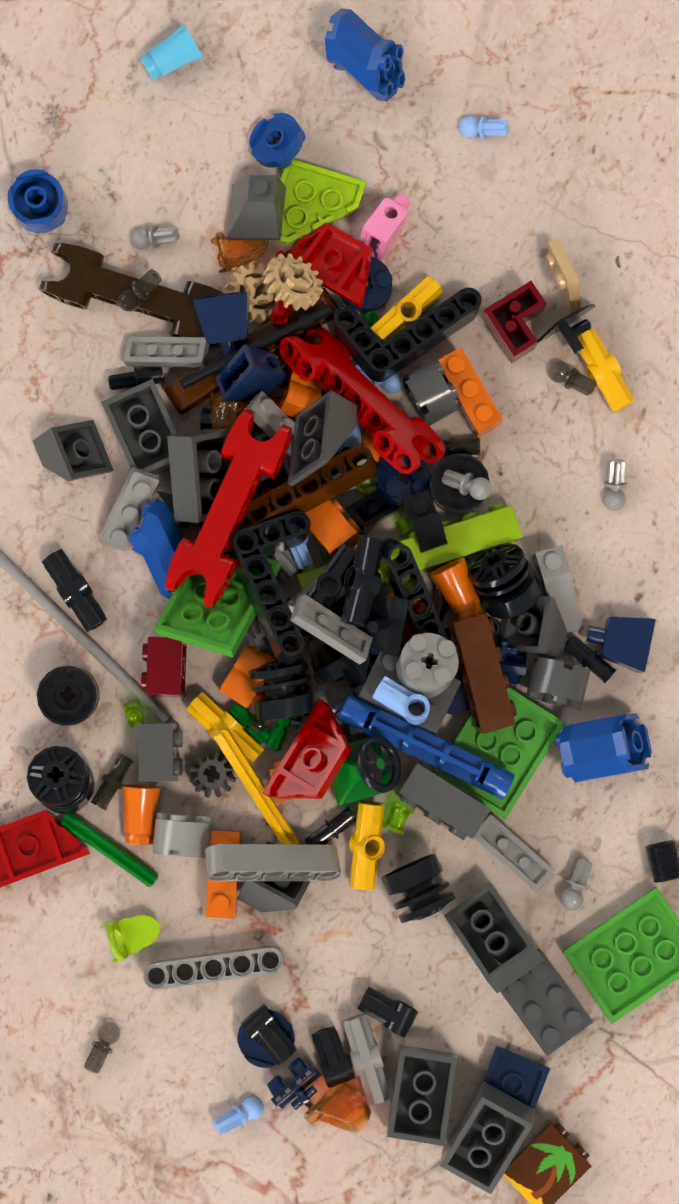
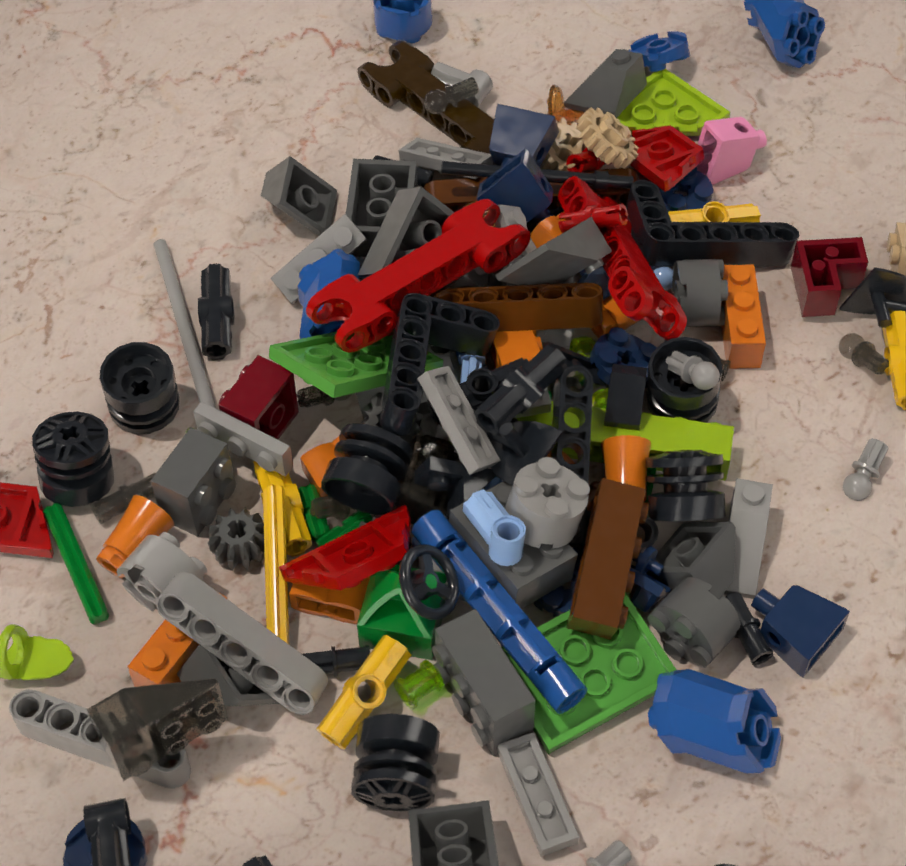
camera: 25 degrees right, 30 degrees down
(131, 259) = (452, 76): none -> light grey piece
(142, 238) = (500, 77): light grey axle -> none
(174, 707) = (244, 439): none -> light grey plate
(249, 963) = (155, 721): none -> clear smoke slope
(328, 382) = (602, 217): none -> red pin
(470, 127) = (874, 120): light blue axle -> none

